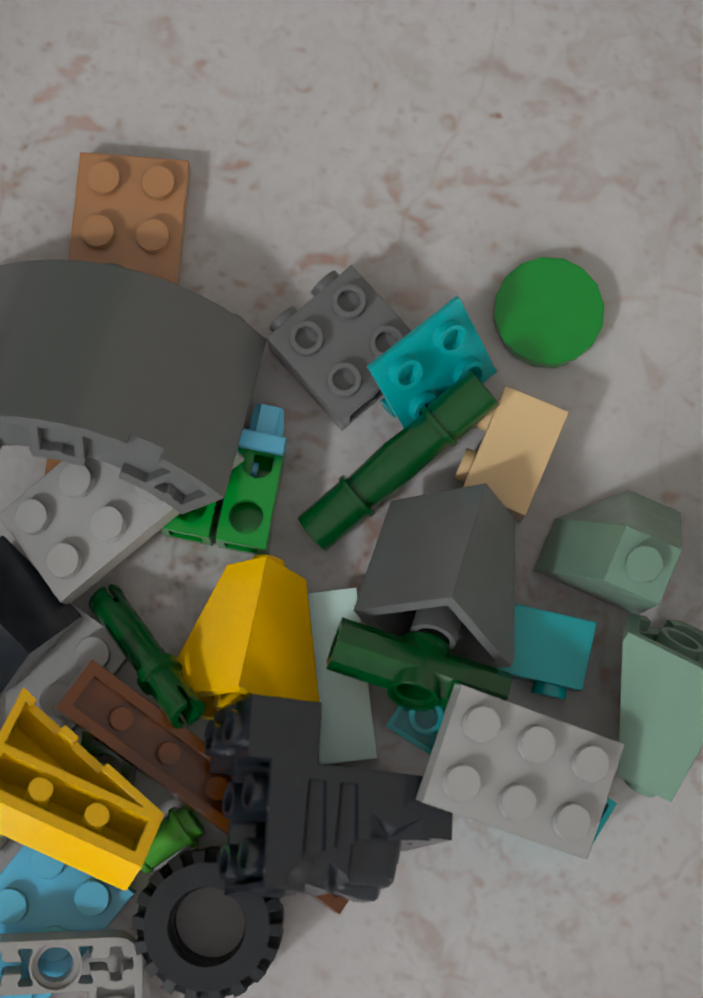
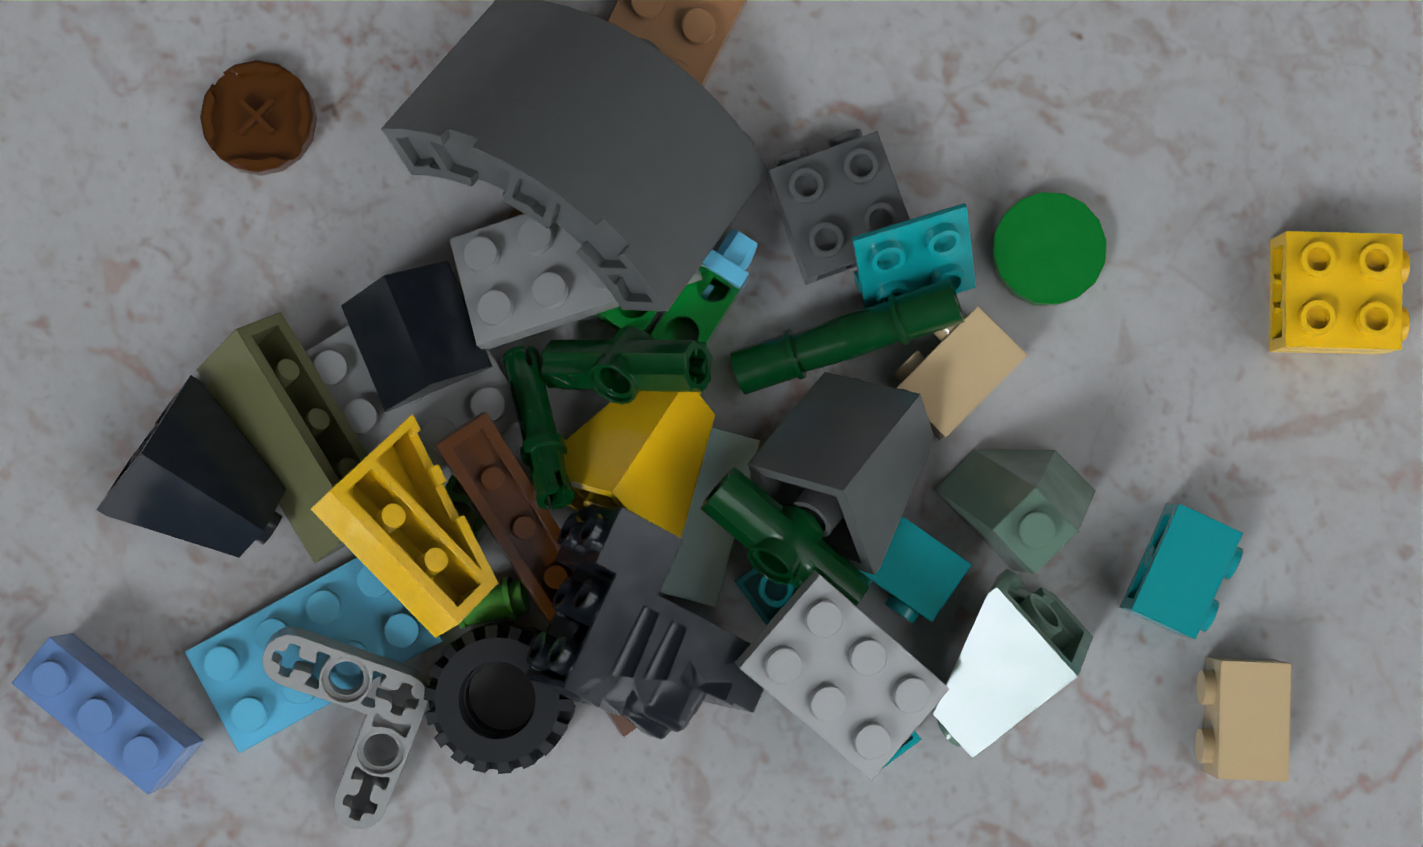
camera: 25 degrees right, 5 degrees up
(206, 565) = (627, 365): none -> dark green piece

